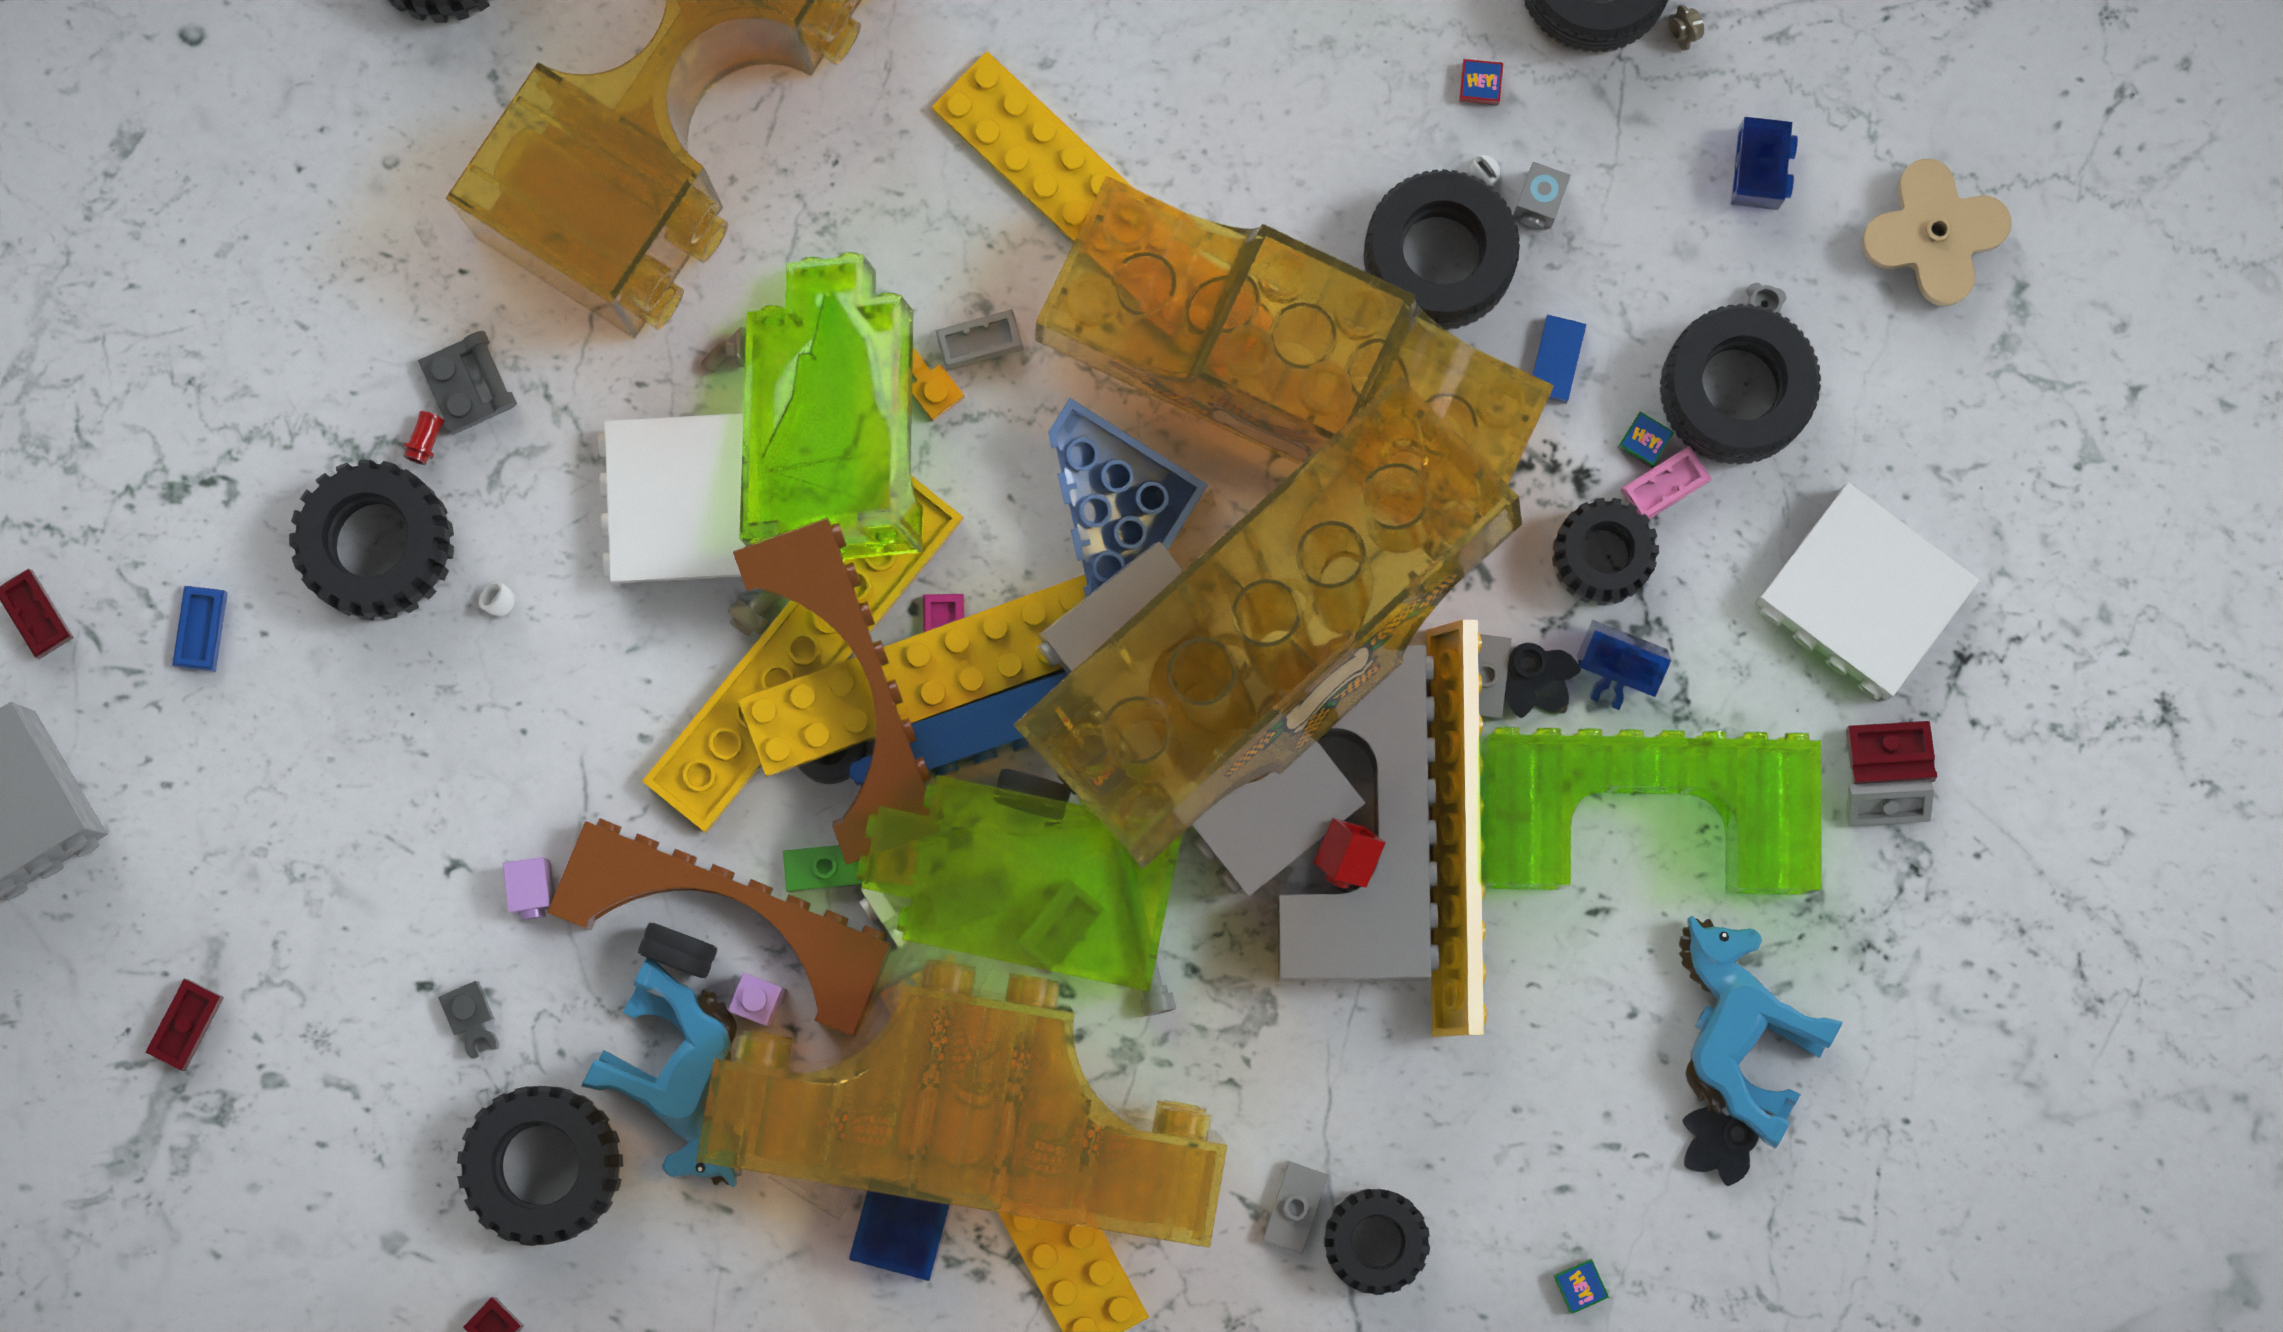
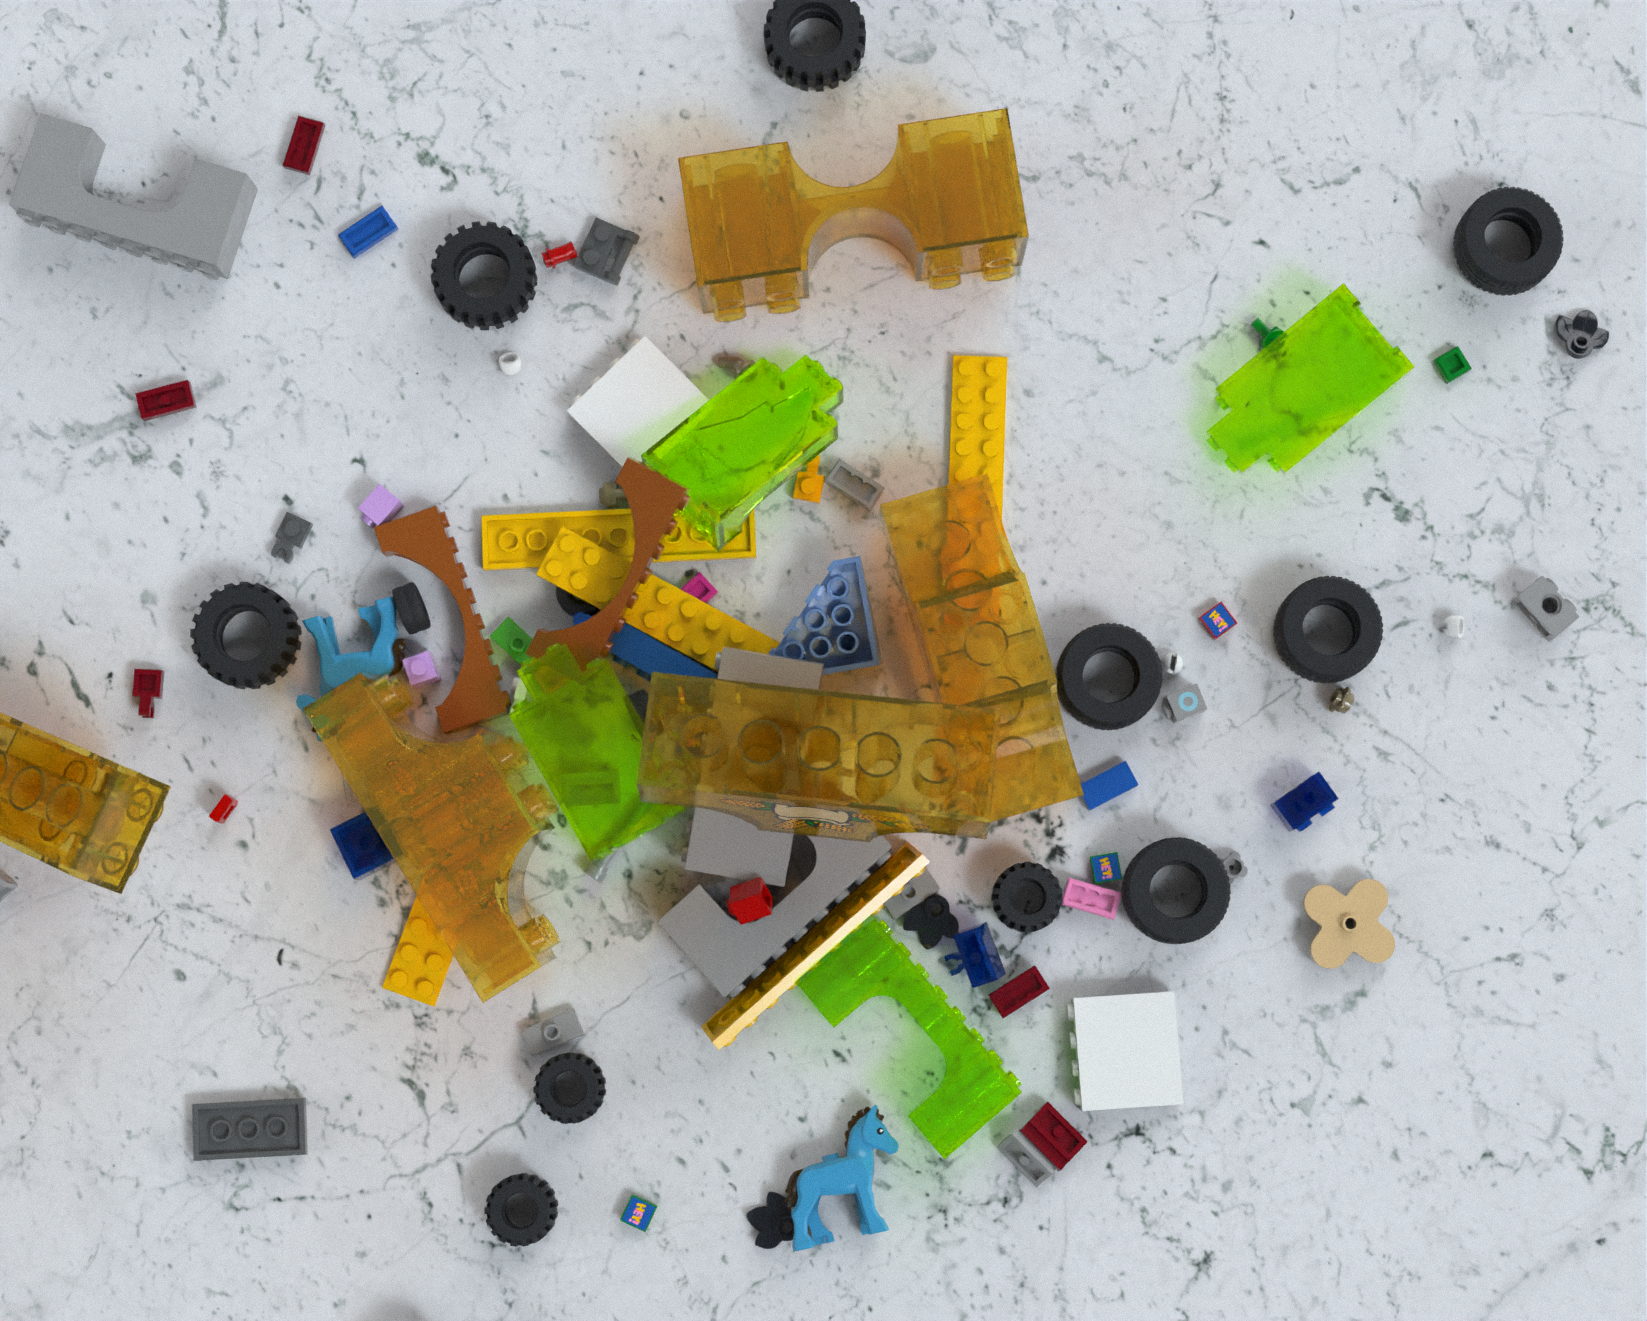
camera: 50 degrees right, 0 degrees up
(1699, 652) = (1018, 991): none -> dark red plate

